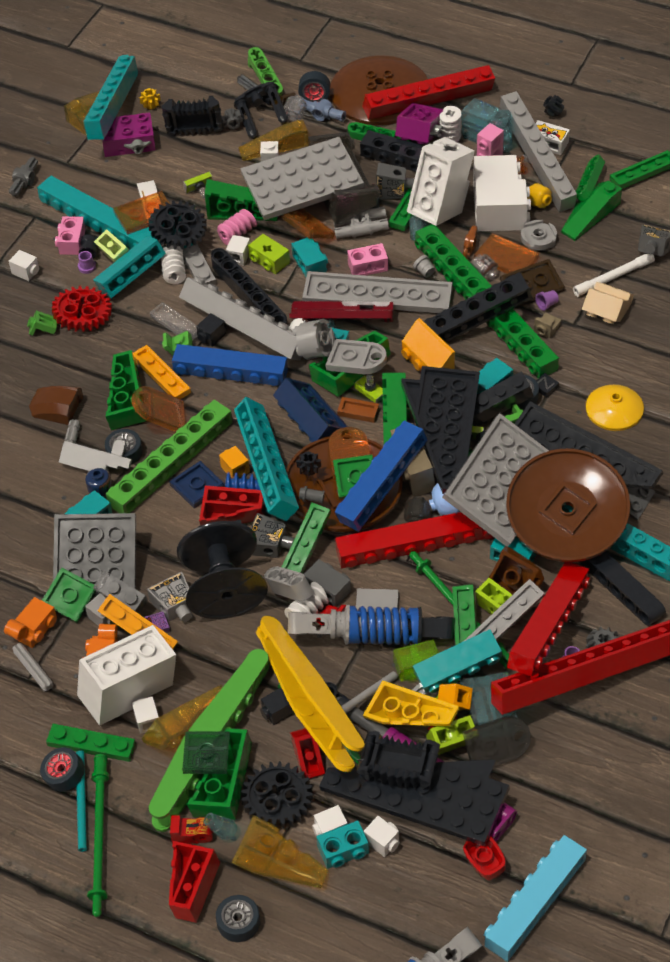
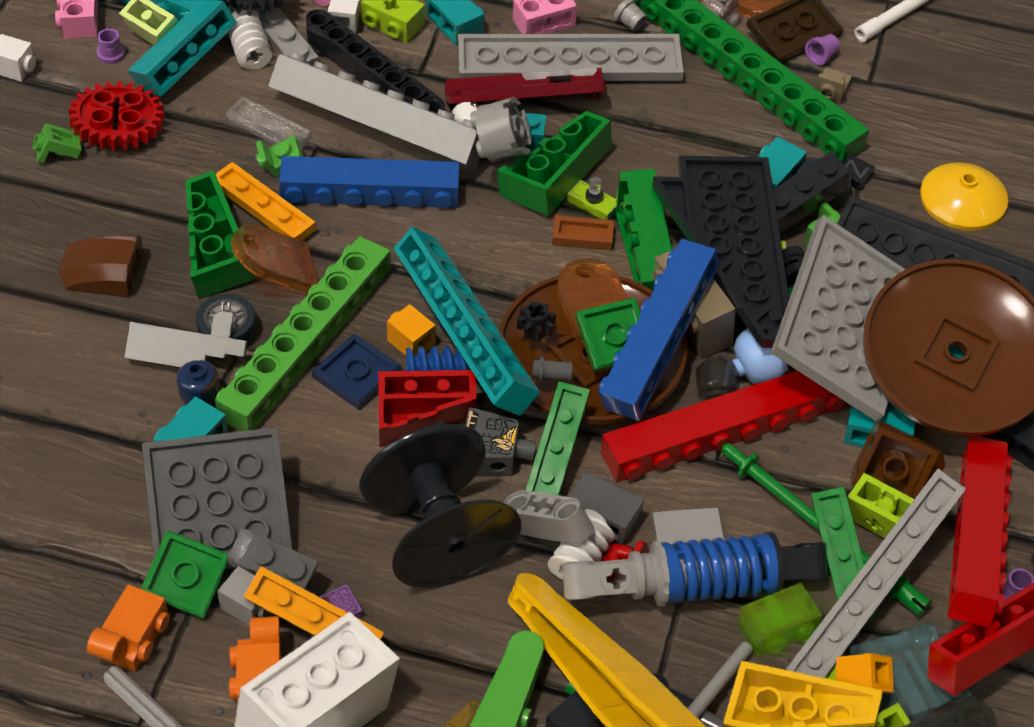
camera: 15 degrees left, 0 degrees up
(72, 433) = (136, 306): light grey axle -> none
(88, 244) = (108, 17): black wheel -> none
(171, 597) = (359, 560): light grey torso -> none
(211, 329) = (328, 131): black brick -> none
(308, 409) = (508, 240): dark blue slope -> none
(356, 357) = (571, 151): light grey tile -> none
(426, 348) = (668, 129): light orange slope -> none
(458, 661) = (854, 615): teal brick -> none
(487, 303) = (772, 44): black brick -> none
(607, 302) = (912, 46): tan piece -> none

